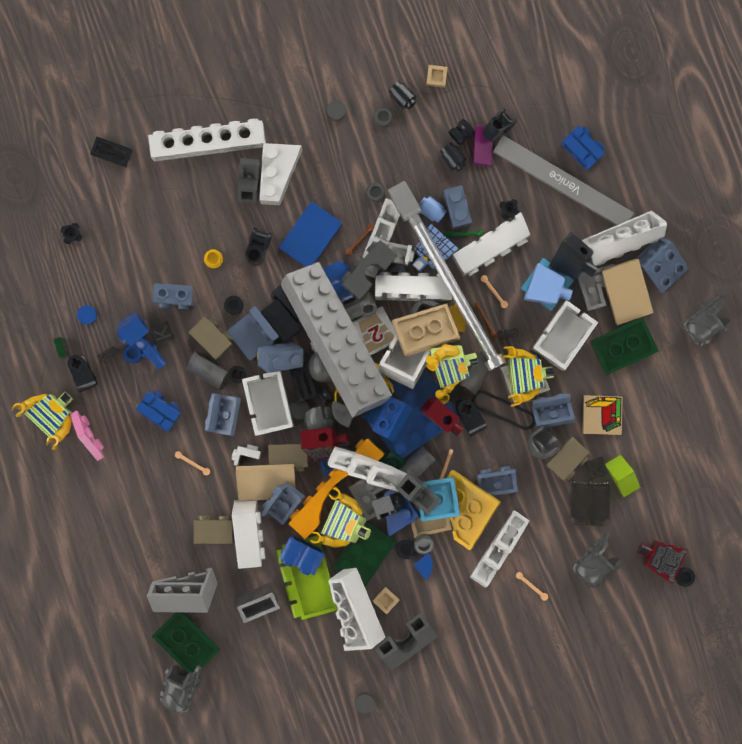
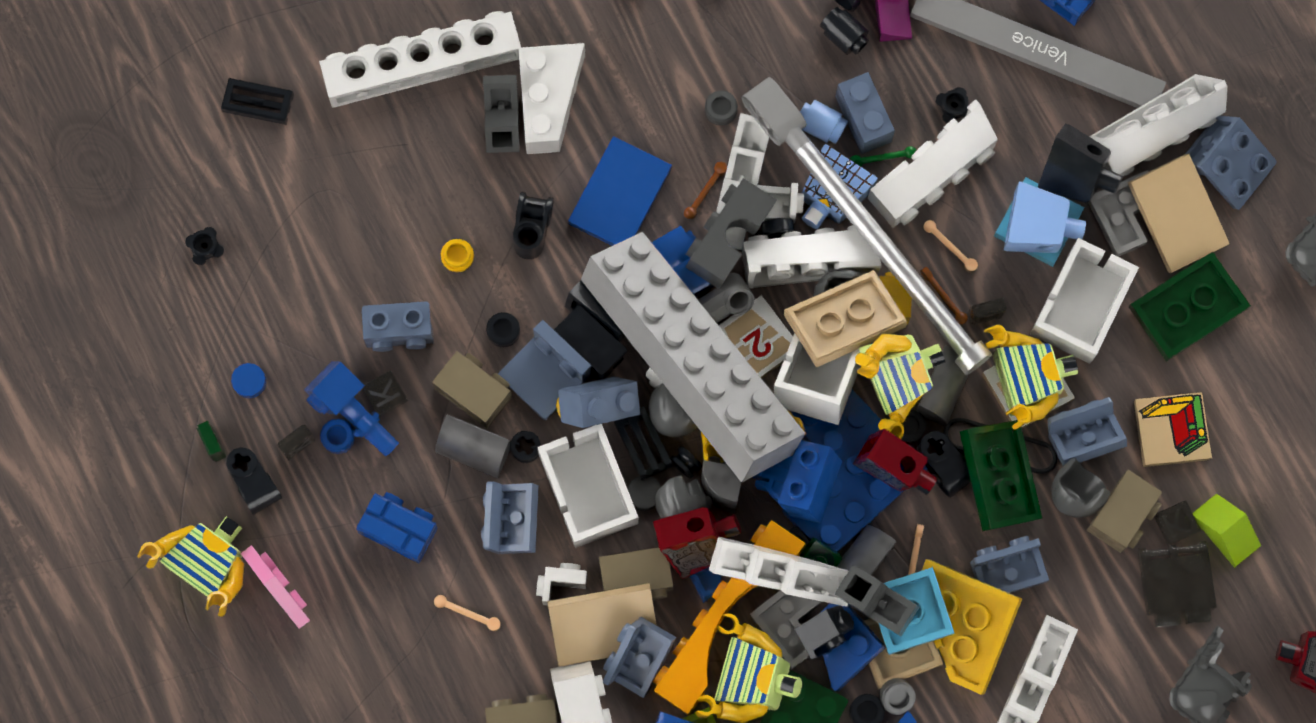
camera: 10 degrees left, 10 degrees down
(500, 430) = (1000, 475): none -> dark green plate

